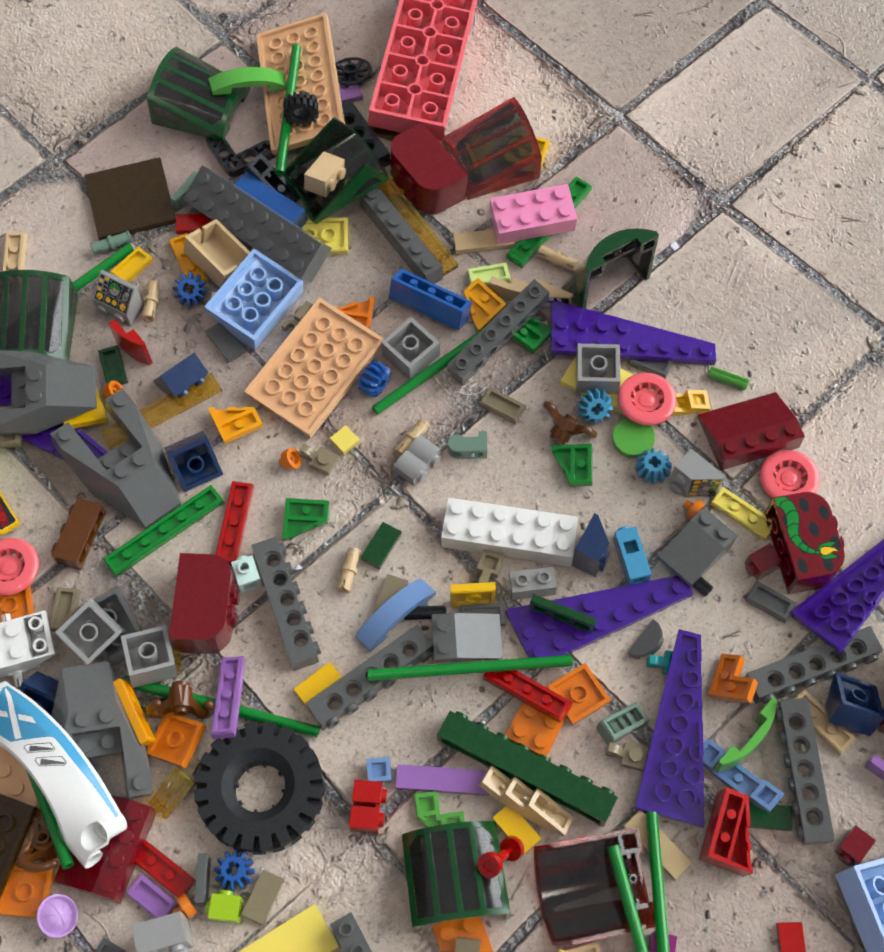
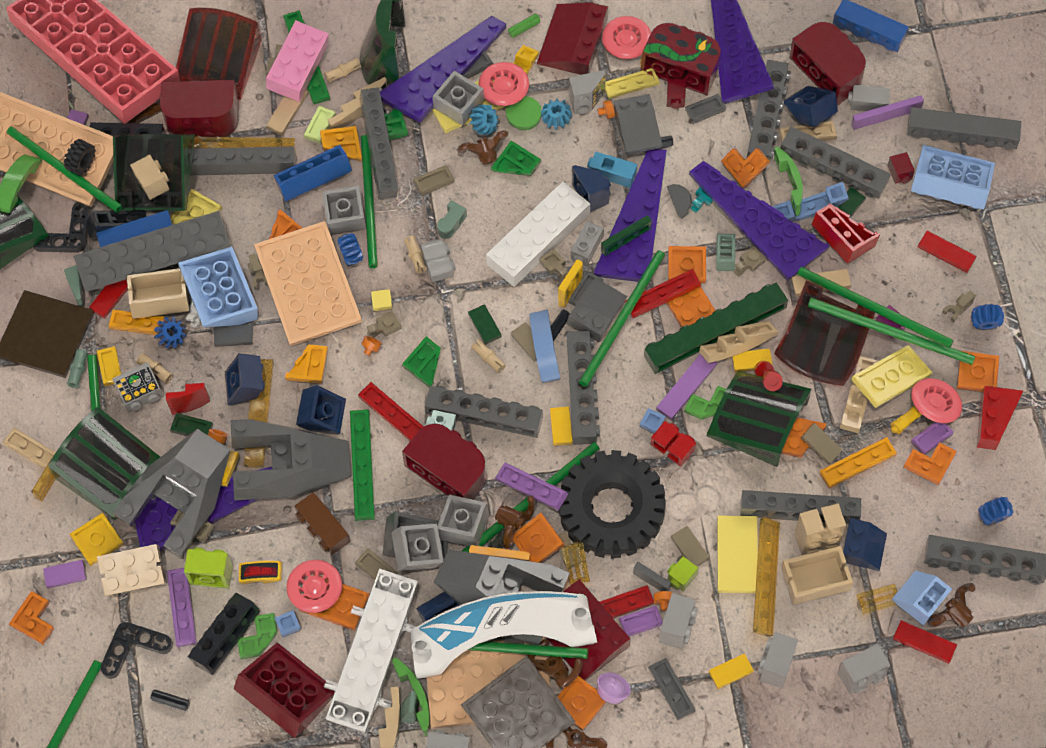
camera: 55 degrees left, 0 degrees up
(225, 869) = (652, 550): blue gear -> none
(351, 71) = (59, 107): black wheel -> none

